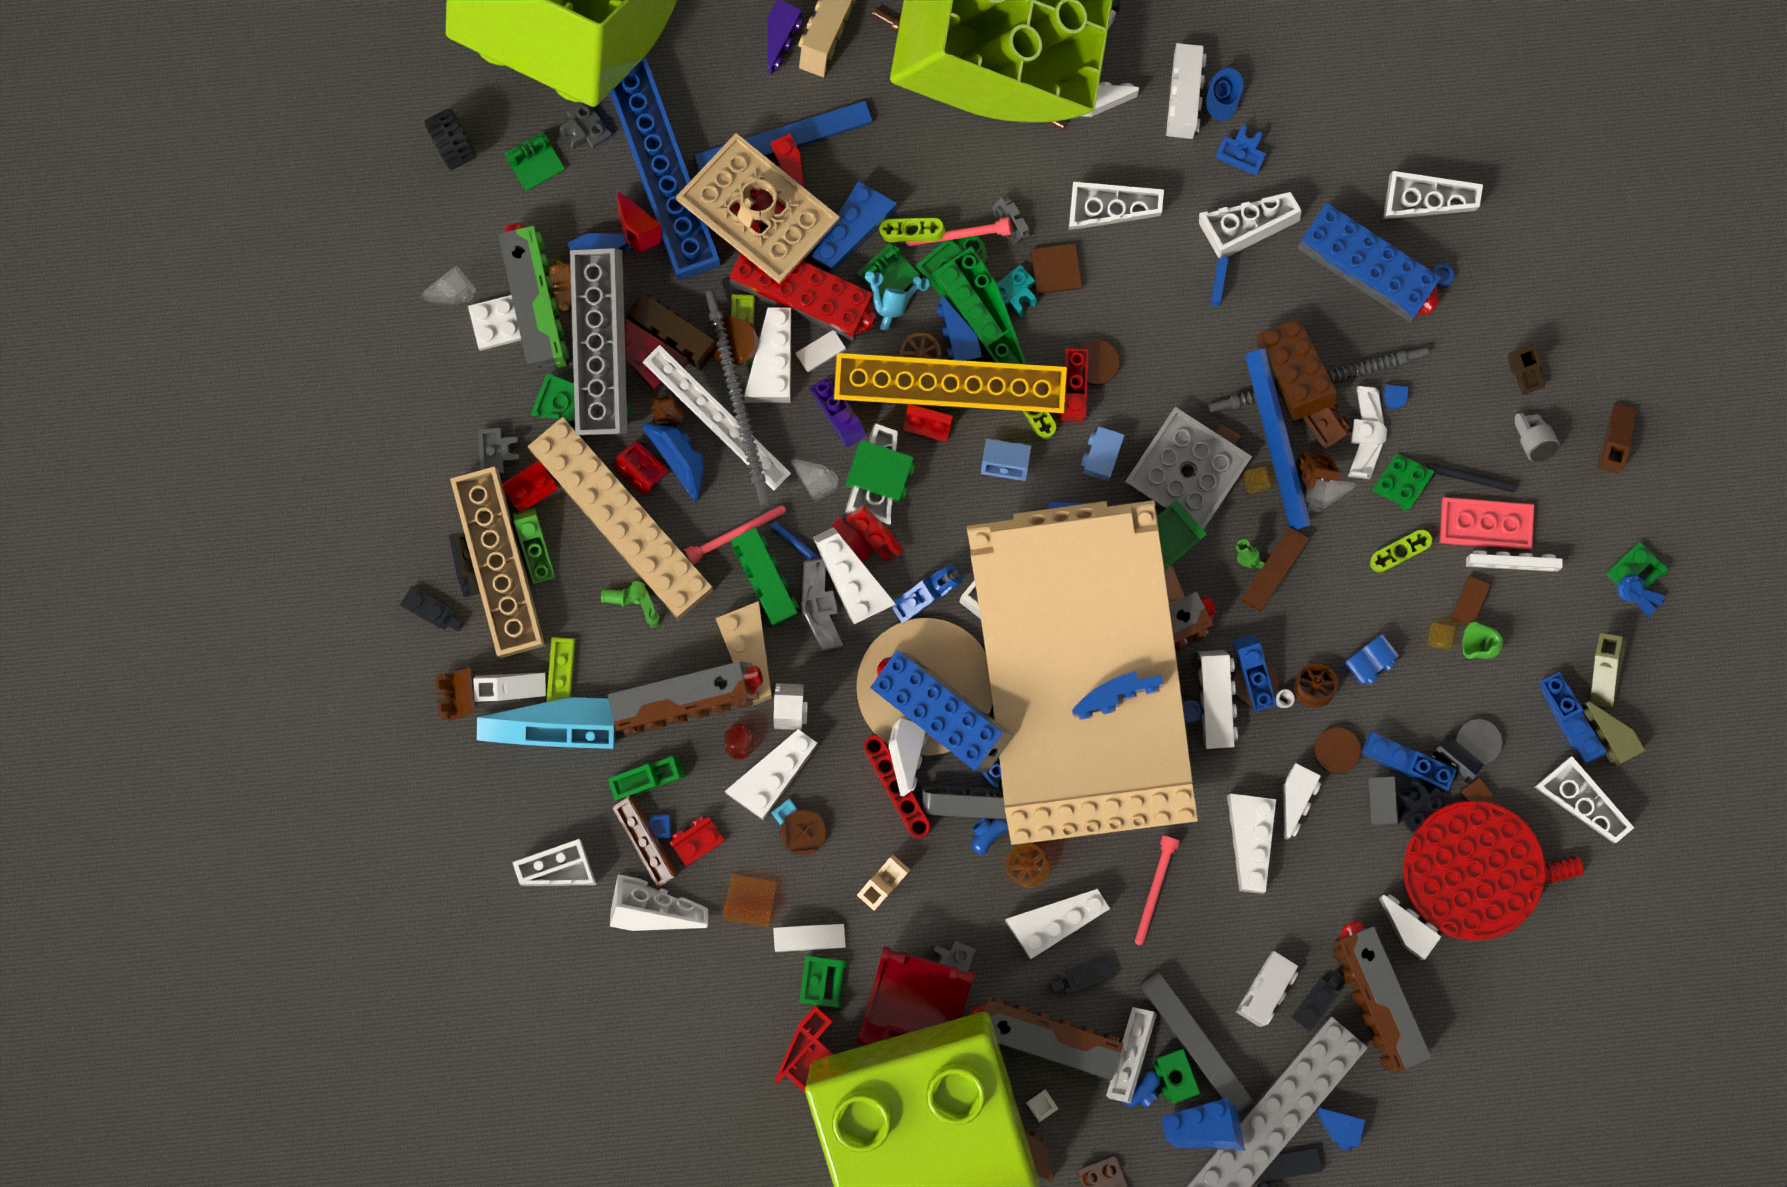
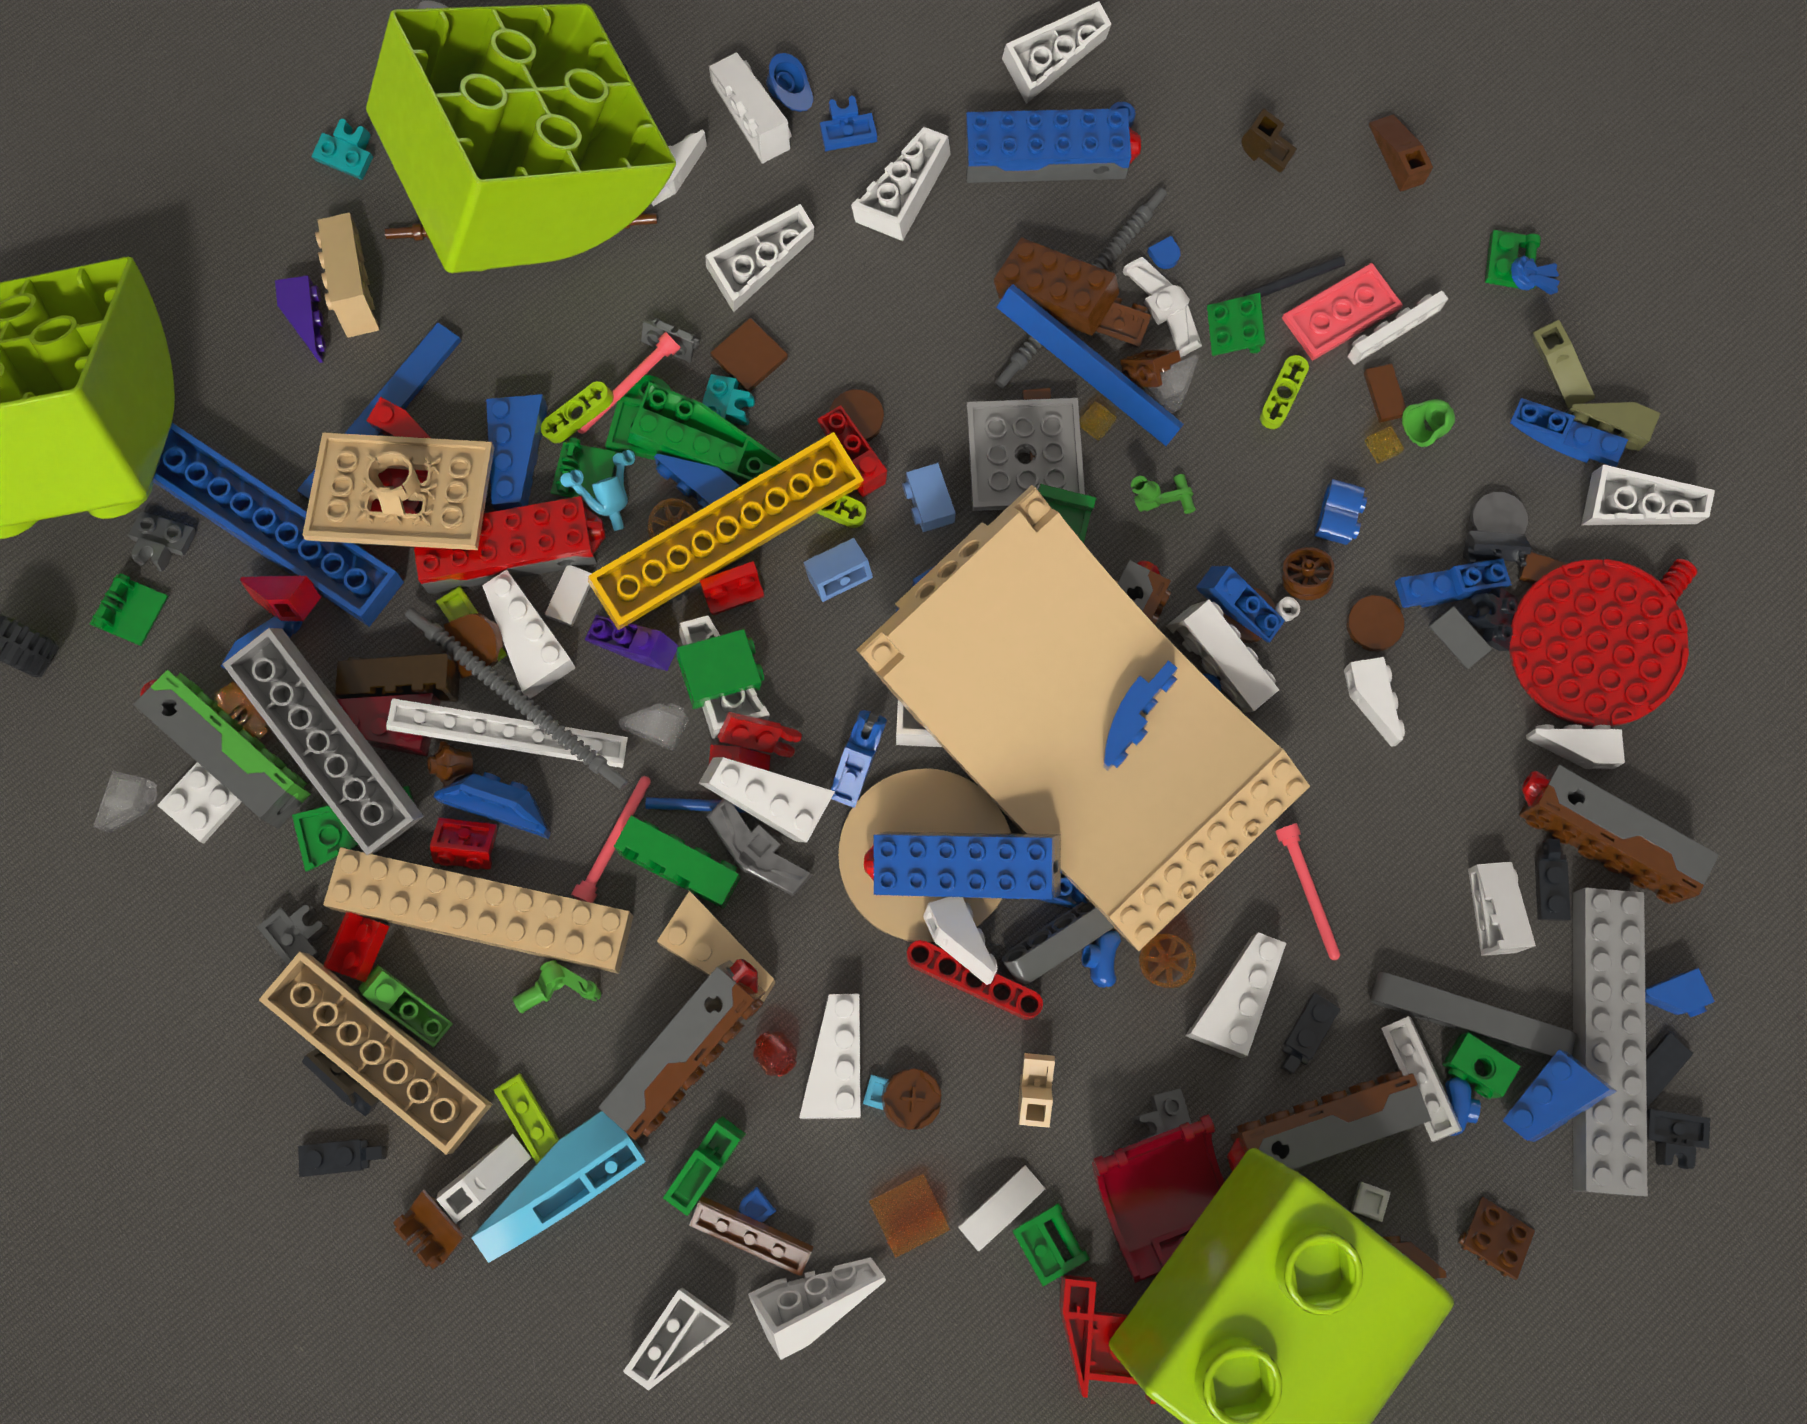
camera: 40 degrees left, 5 degrees down
(696, 841) = (807, 1193): red bracket -> none
(789, 707) = (803, 976): white wedge -> none
(1219, 281) = (917, 259): blue tile -> none
(1252, 837) = (1367, 770): white wedge -> none
(1275, 569) = (1183, 490): reddish brown tile -> none
(1539, 441) = (1327, 199): light grey piece -> none

